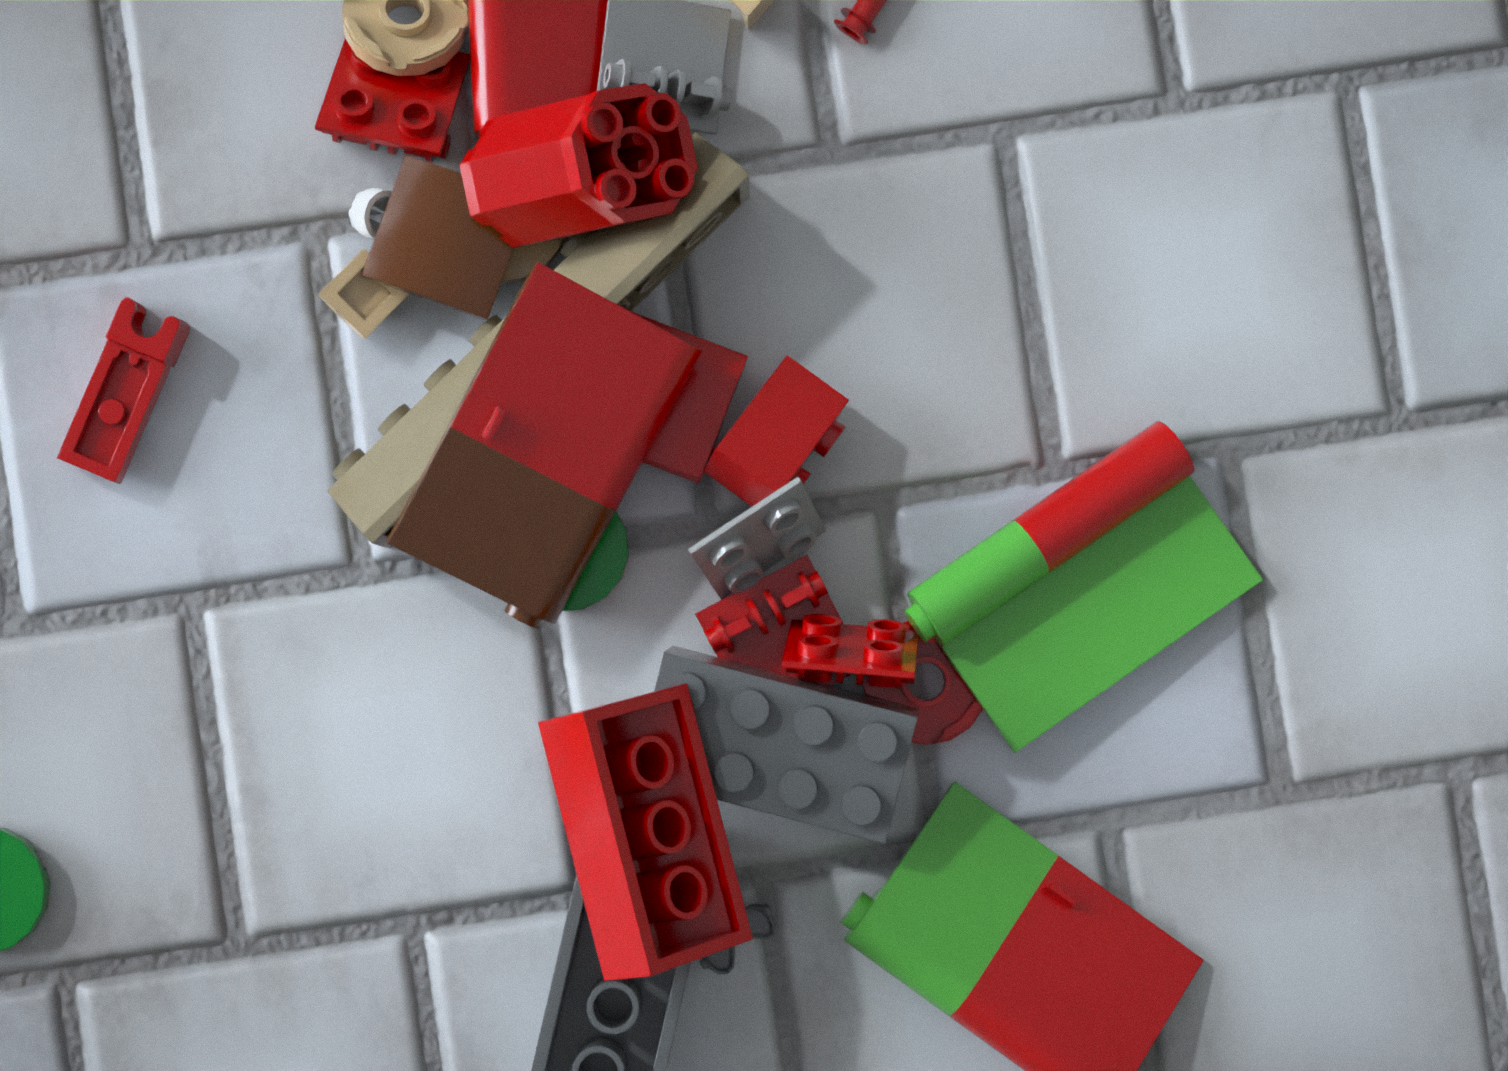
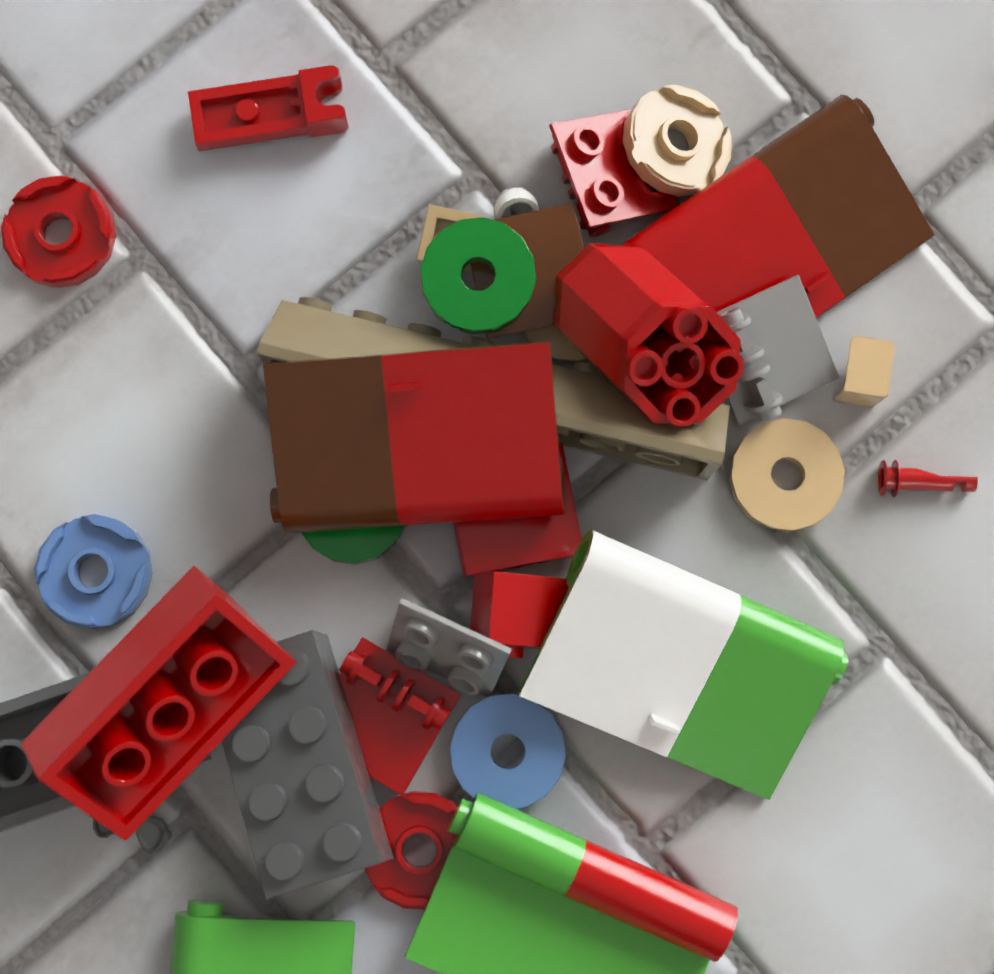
camera: 60 degrees right, 5 degrees down
(153, 663) = (80, 254): none -> red tile
(416, 251) = (473, 242): none -> green tile
(435, 837) = (60, 564): none -> medium blue tile
(799, 83) = (819, 468): none -> tan tile
(826, 646) = (396, 758): red hinge -> none
(878, 505) = (513, 716): none -> medium blue tile
(909, 330) = (682, 666): none -> door

